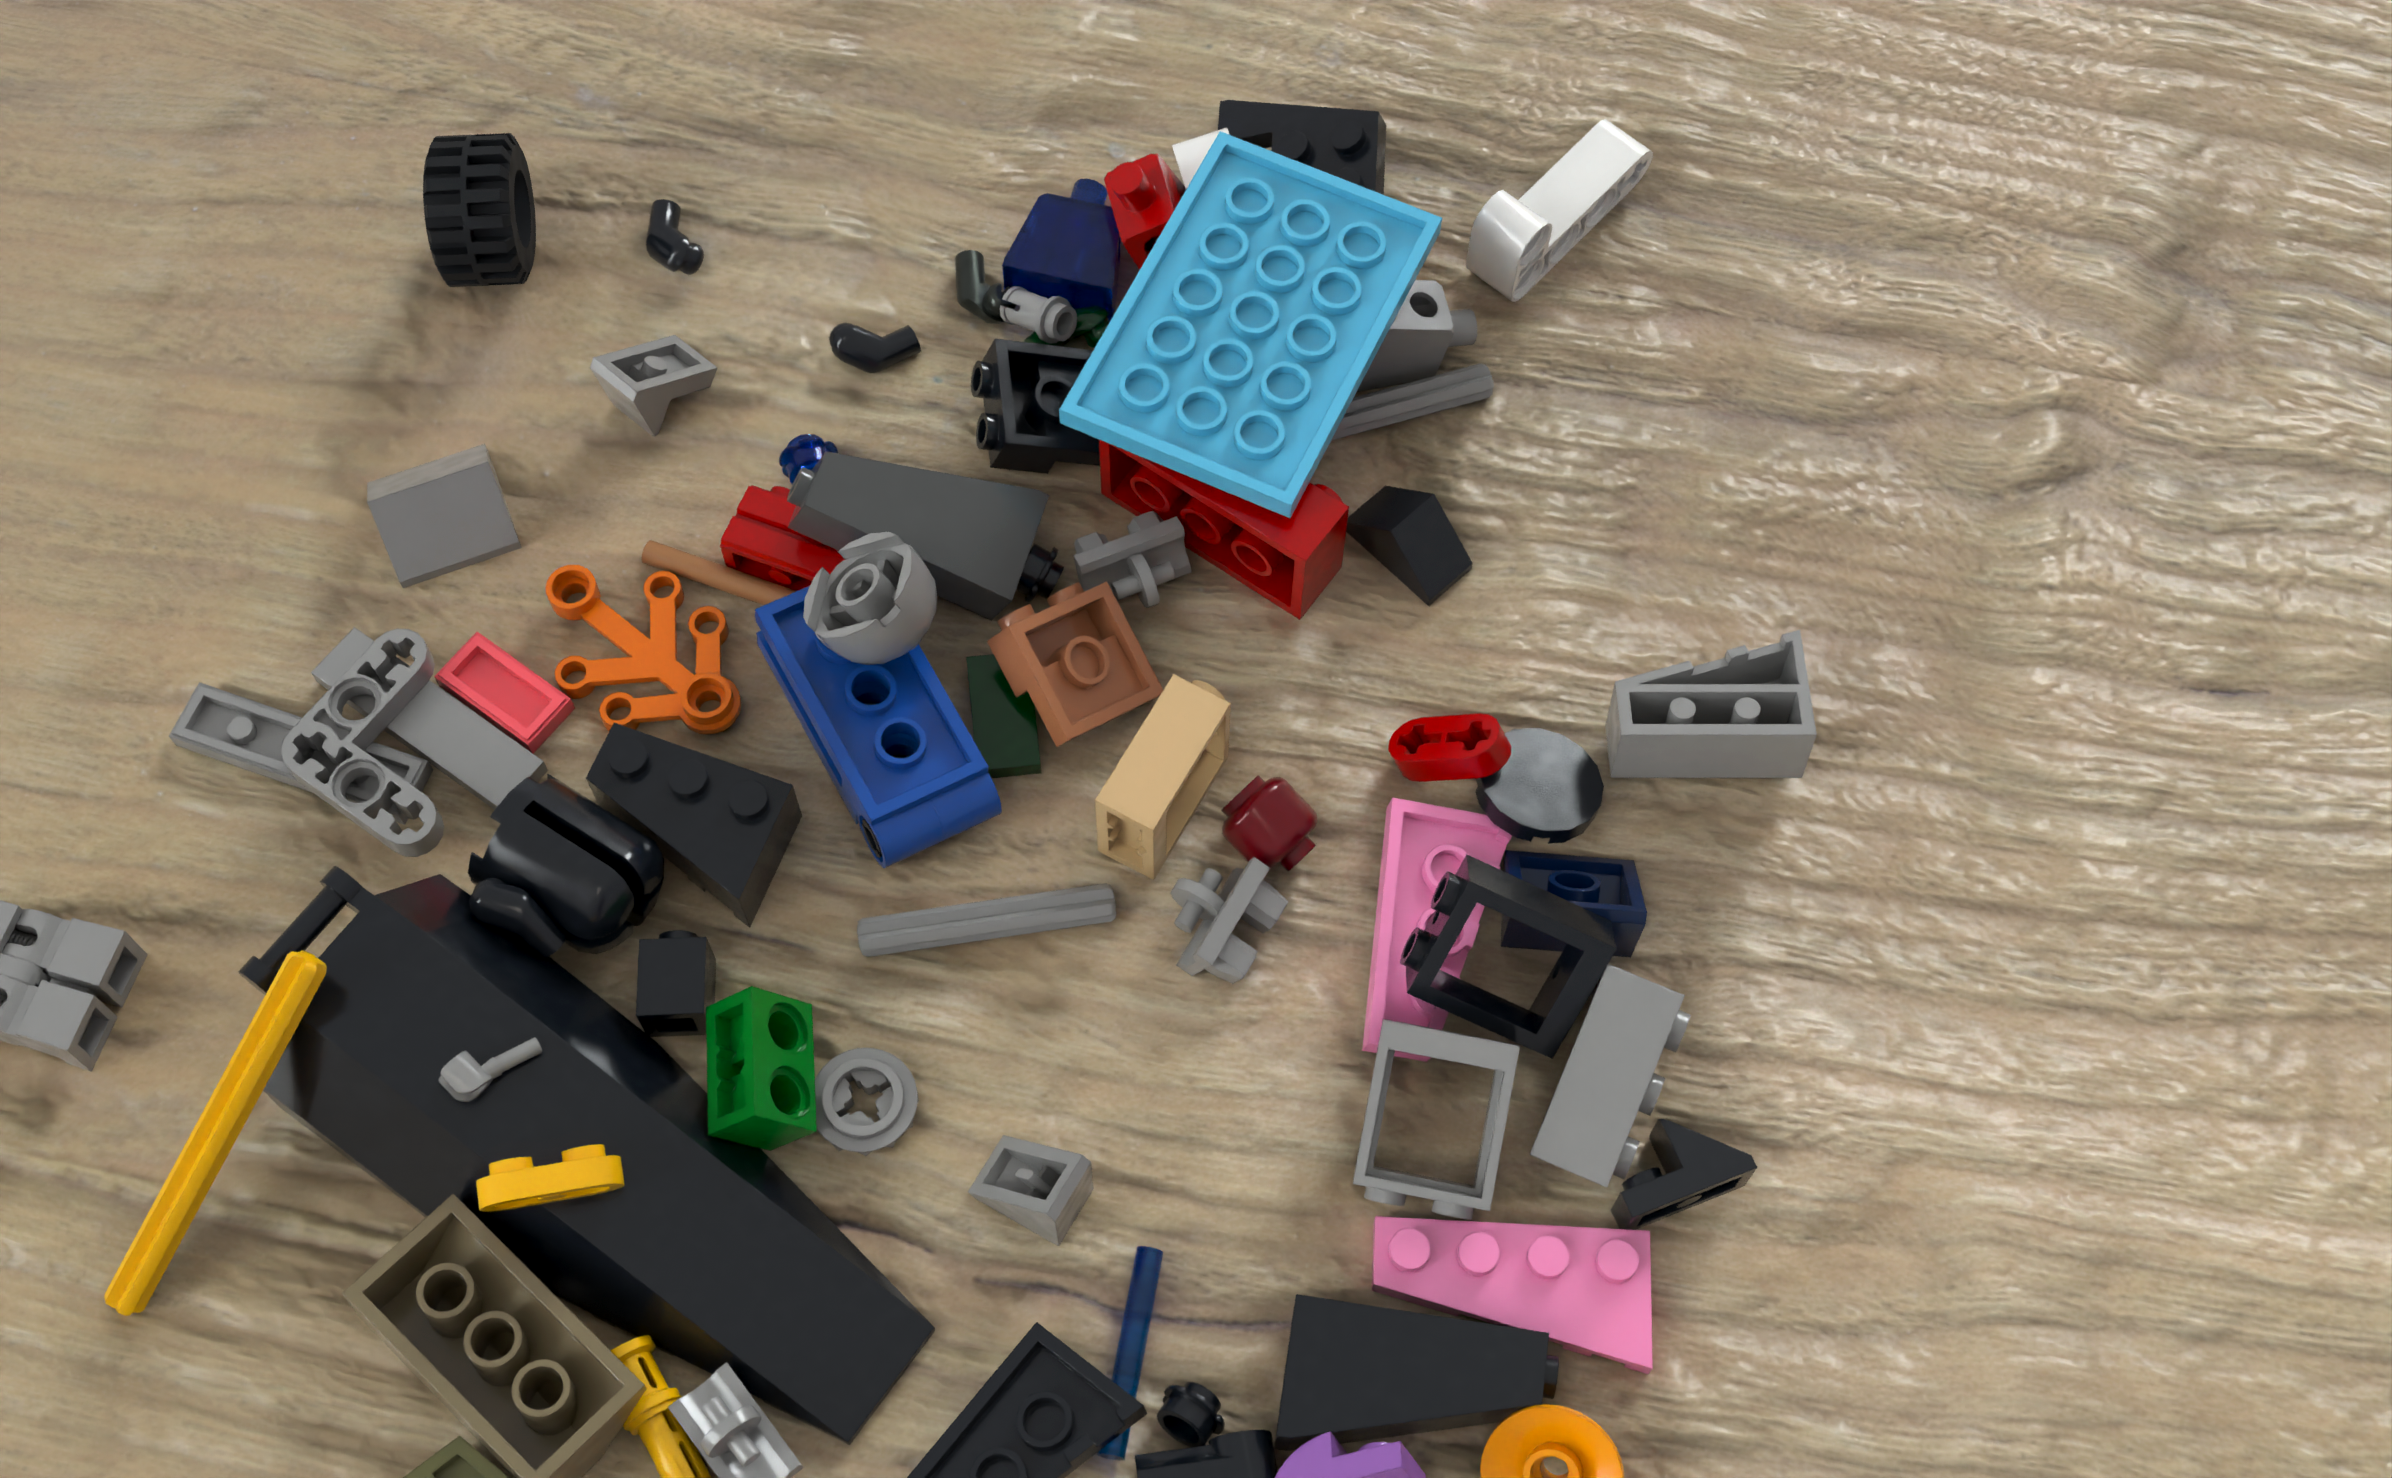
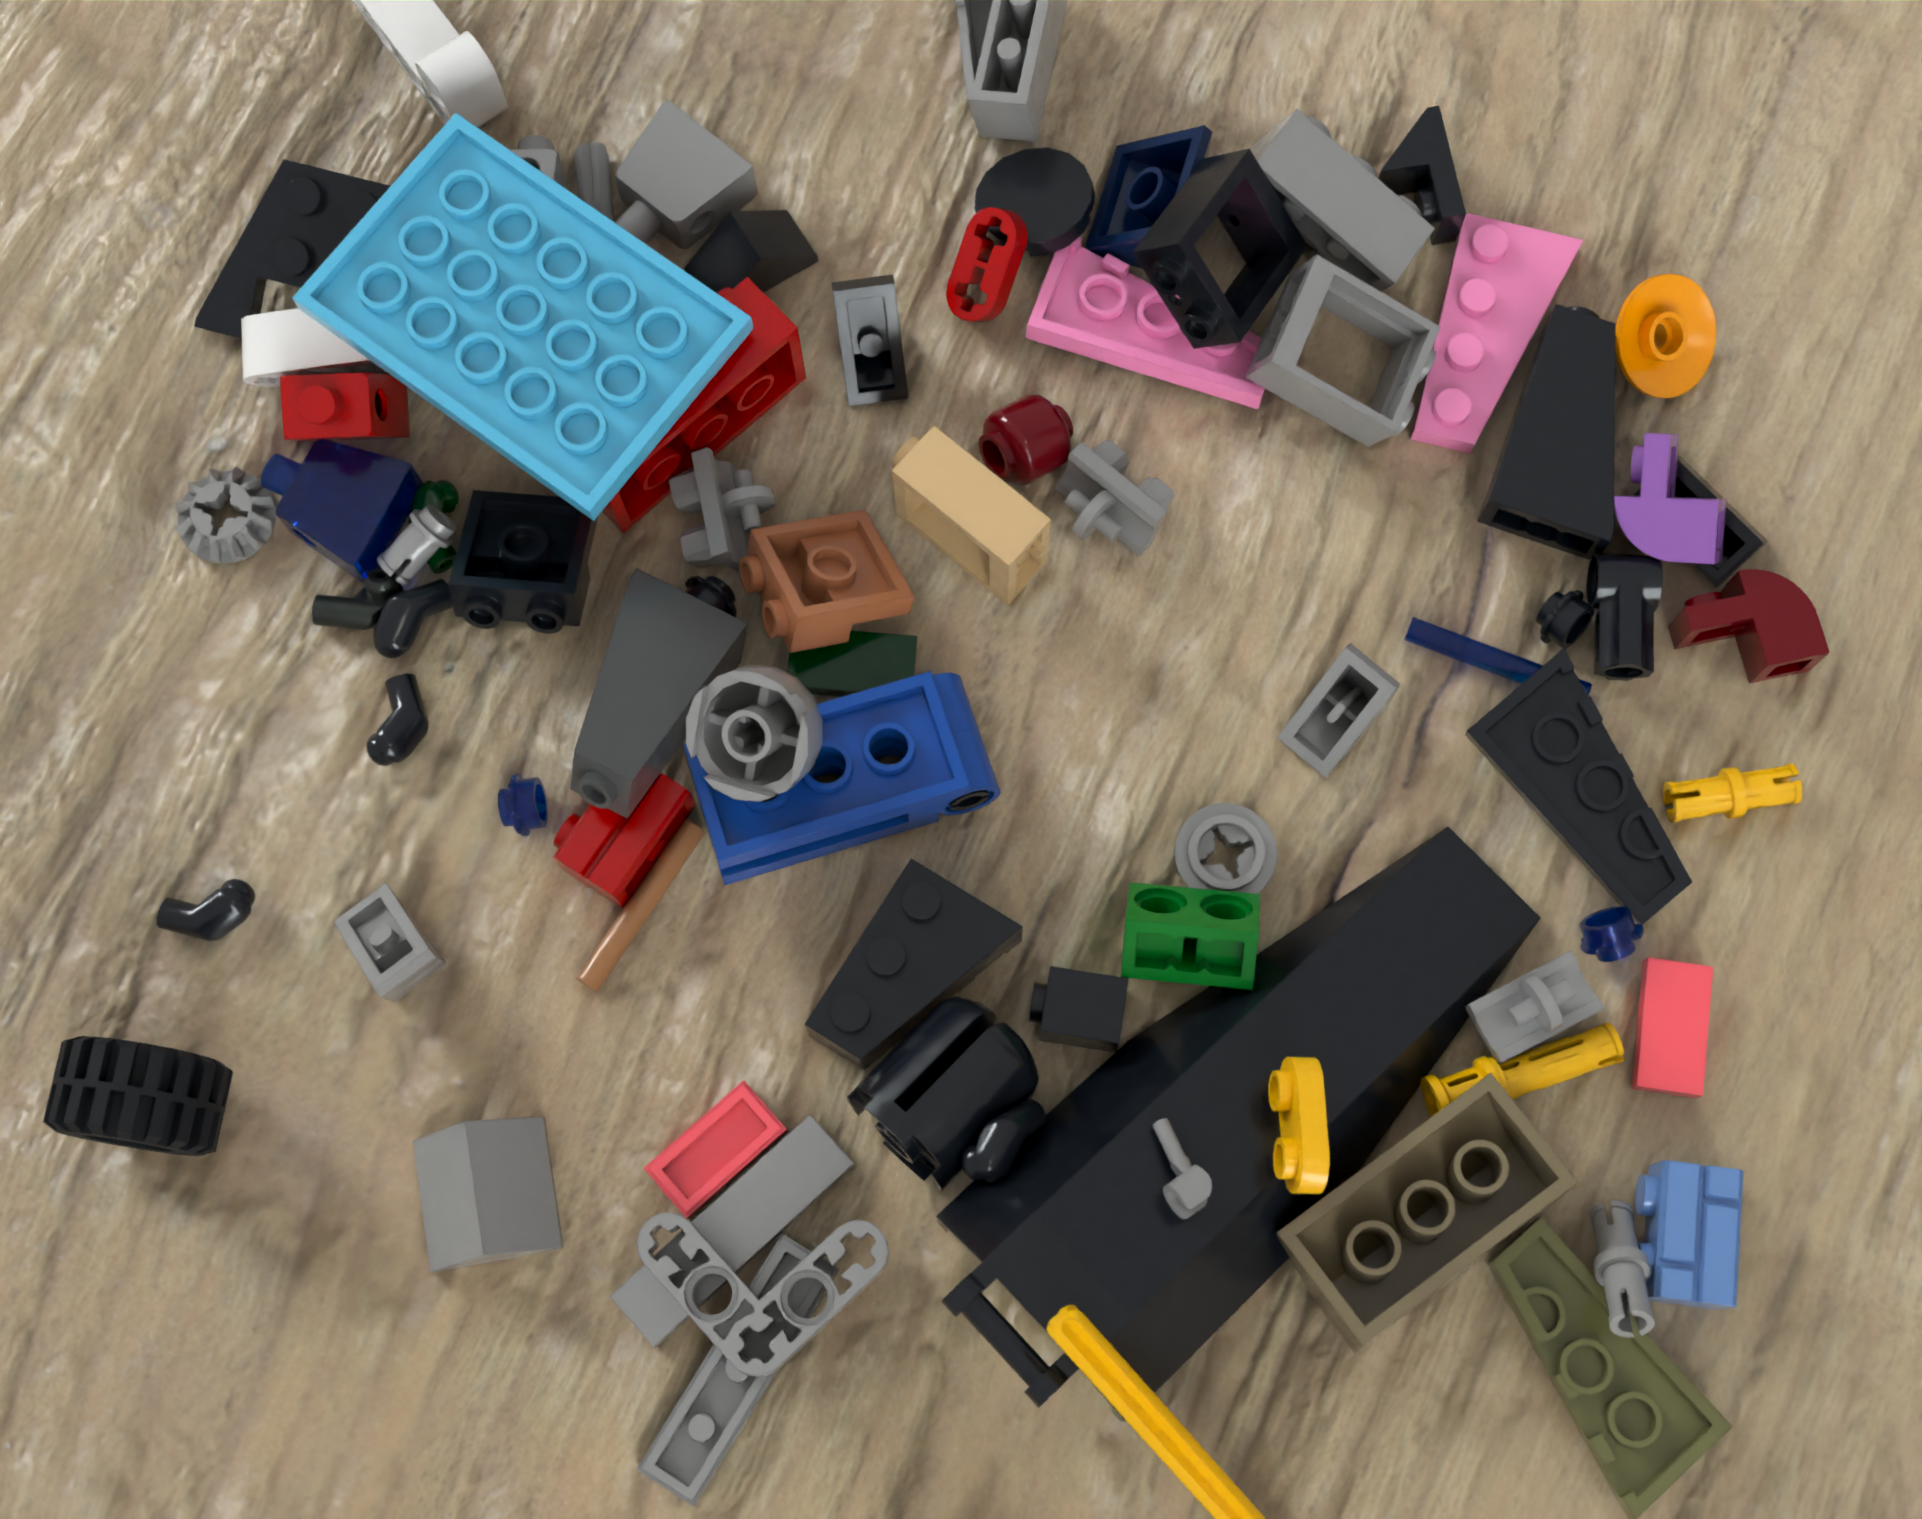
camera: 75 degrees left, 10 degrees up
(648, 658) = (713, 994): orange plant -> none
(968, 323) = (404, 615): none -> black arm
(986, 920) = (1064, 715): light grey axle -> none
(1020, 166) = (238, 536): none -> light grey gear
(1341, 657) = (870, 340): none -> slope
(1469, 455) = (681, 180): none -> light grey torso

